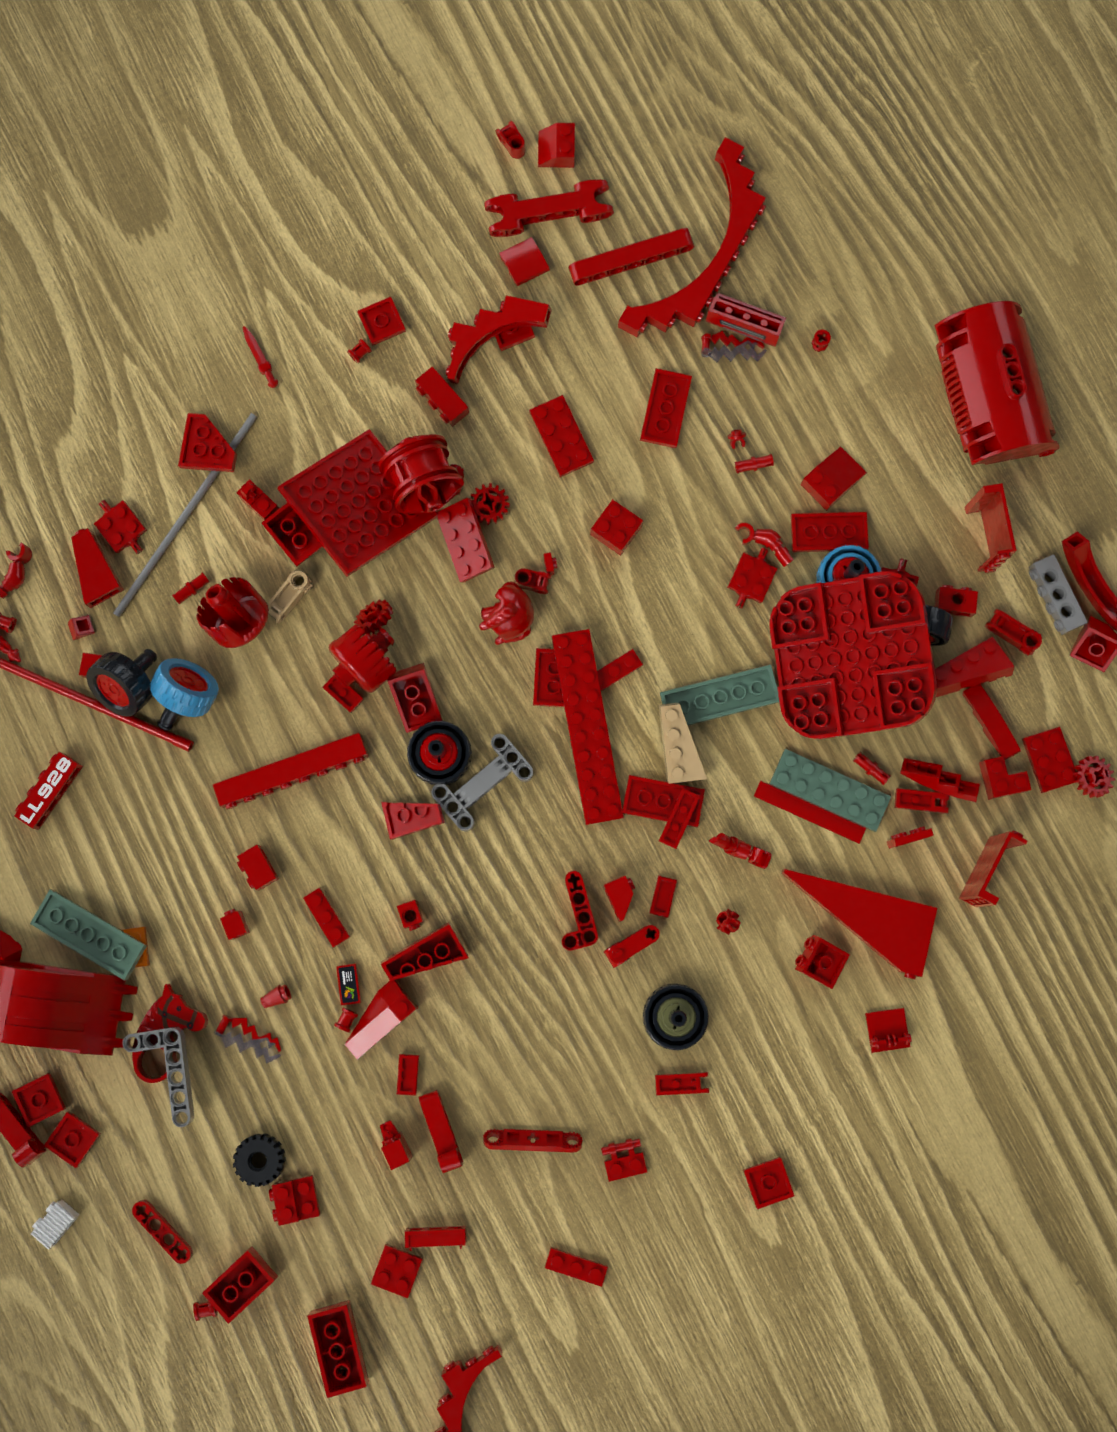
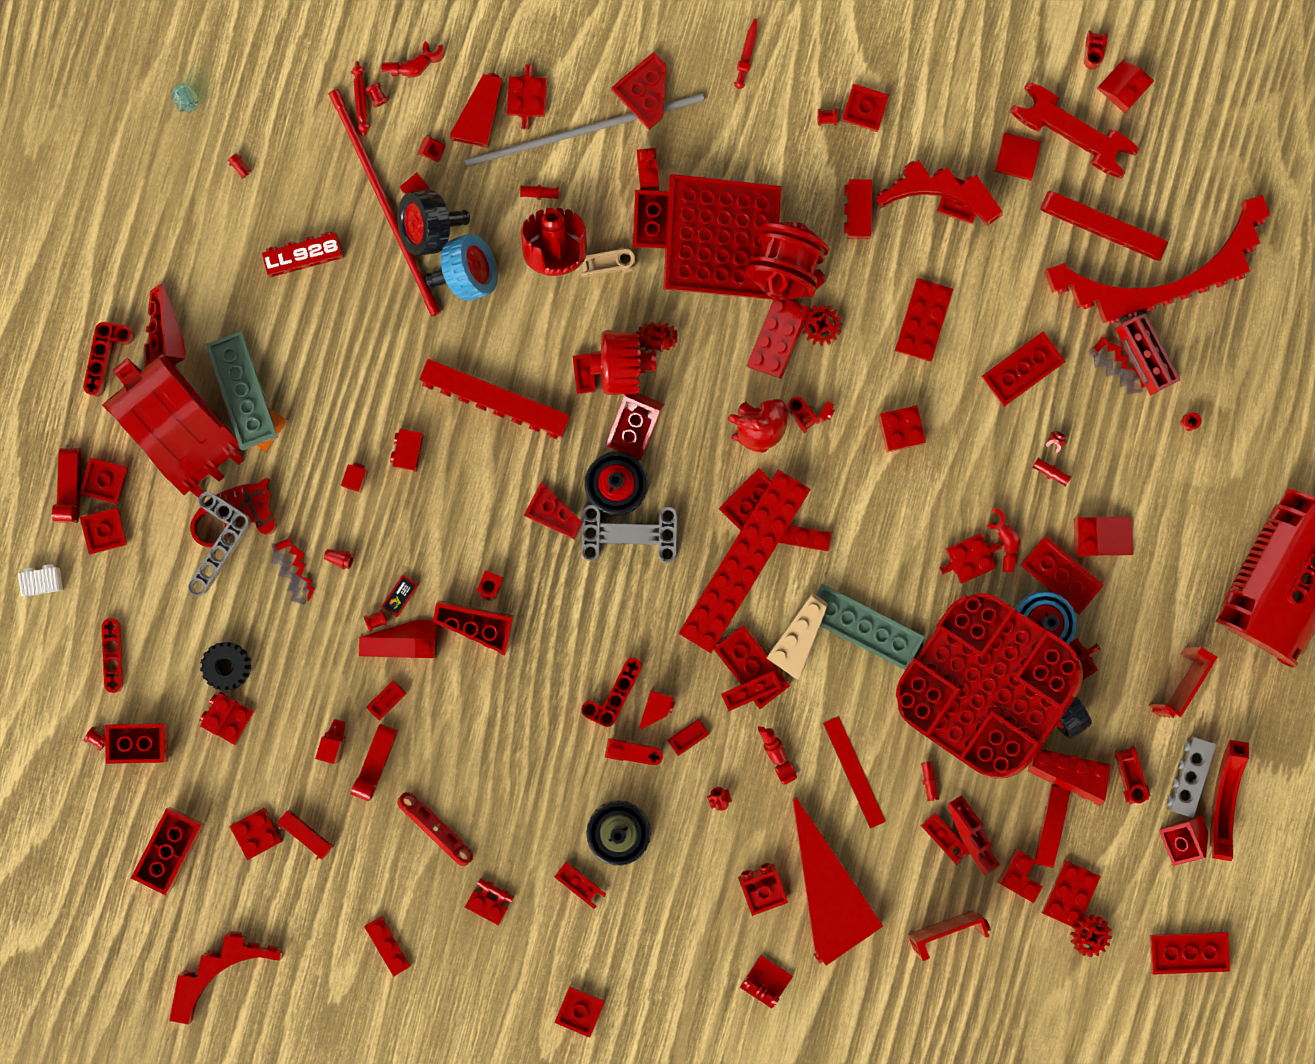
camera: 35 degrees right, 5 degrees up
(326, 917) = (426, 532): red plate -> none
(830, 790) = (884, 769): sand green plate -> none
(915, 835) = (916, 859): red plate -> none
(967, 599) = (1098, 710): red brick -> none

